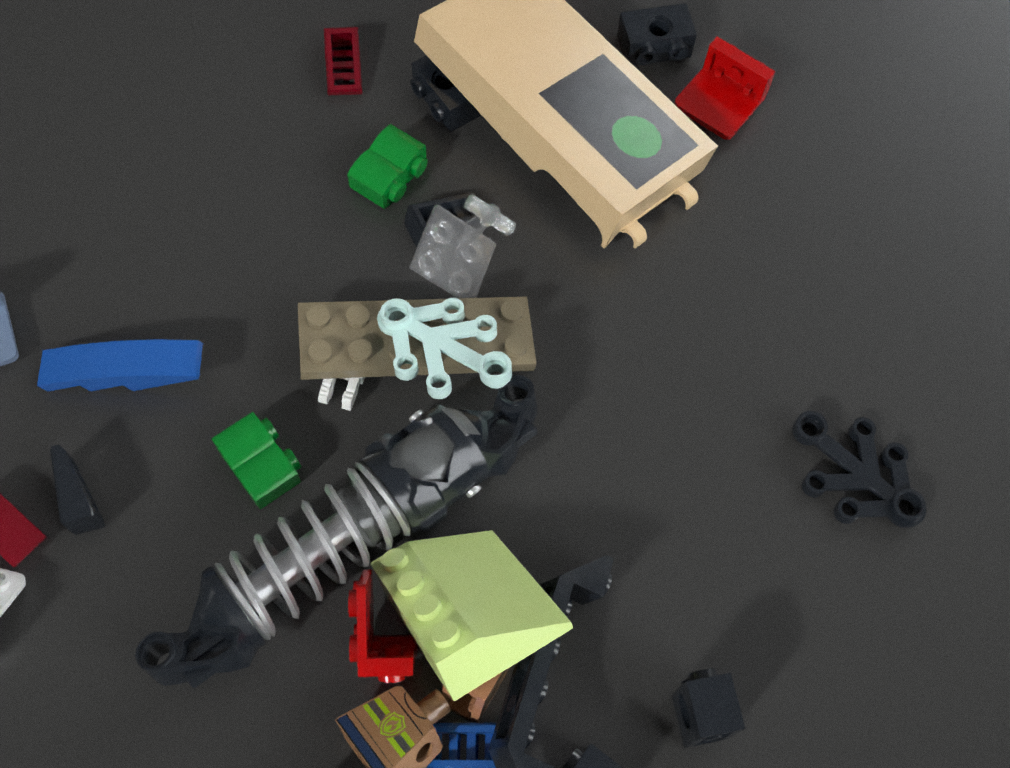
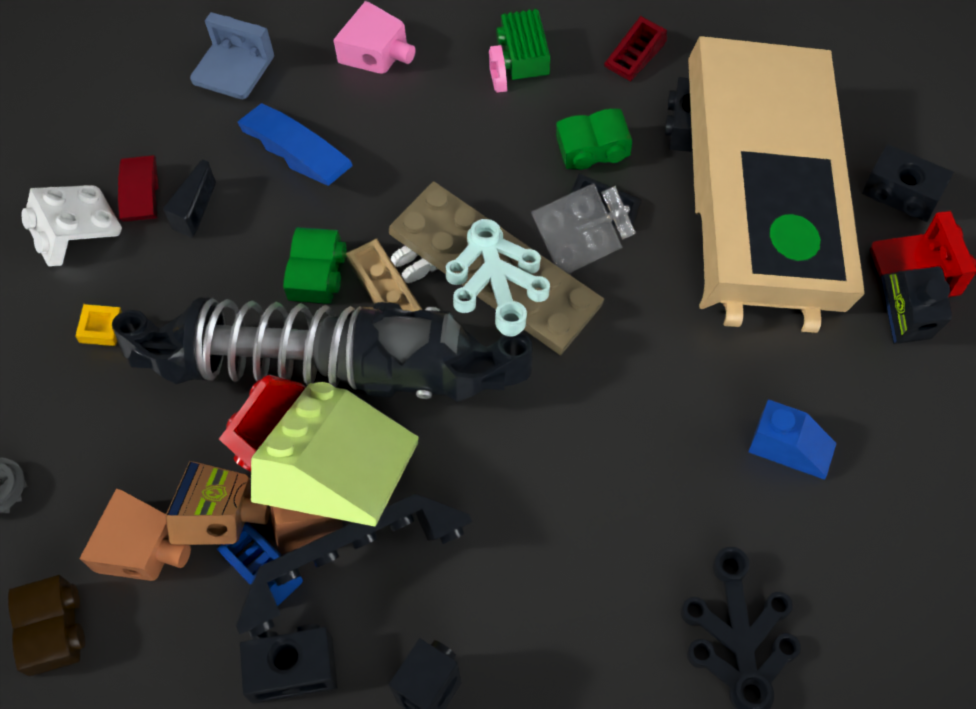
camera: 50 degrees right, 5 degrees down
(96, 212) = (373, 40): none -> bright pink torso
(110, 675) = (96, 324): none -> yellow plate
(241, 160) = (497, 69): none -> bright pink tile
(243, 121) = (524, 44): none -> green brick
(330, 425) = (381, 276): none -> tan tile
(753, 124) = (916, 303): none -> black torso
(760, 300) = (792, 440): none -> blue slope

